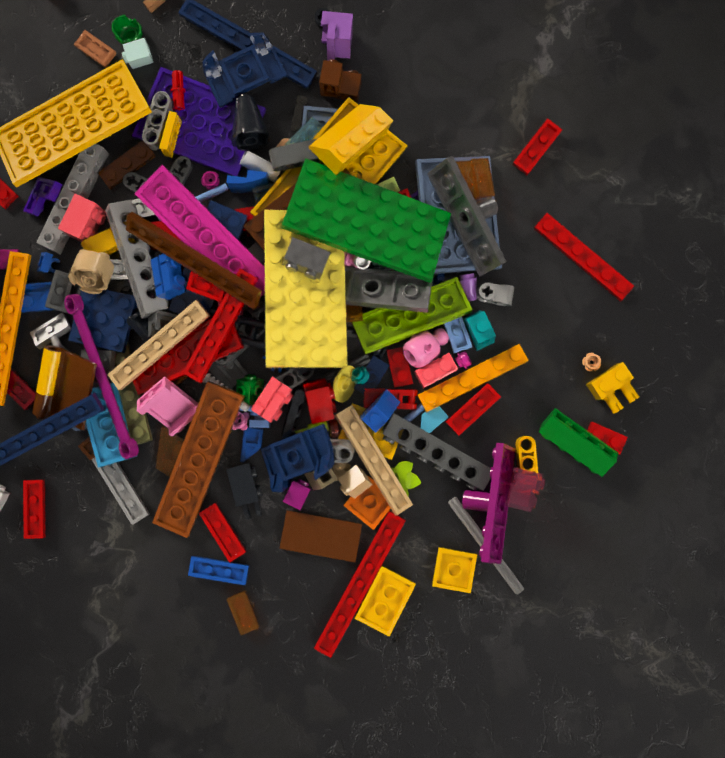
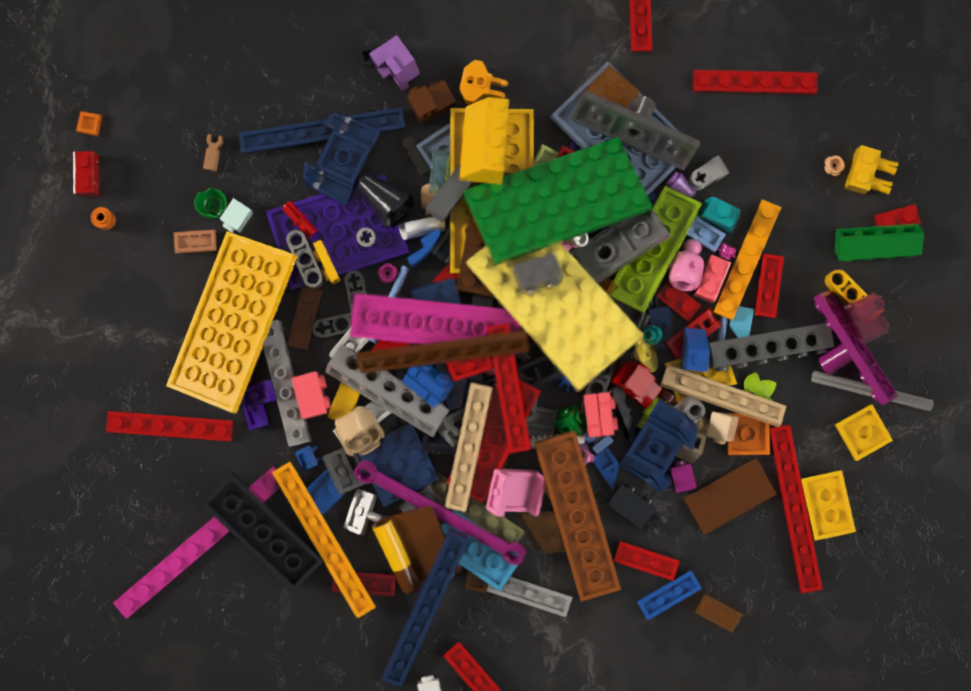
camera: 45 degrees left, 0 degrees up
(211, 135) = (360, 234): none -> light grey bush
(384, 95) = (481, 83): none -> light orange hinge

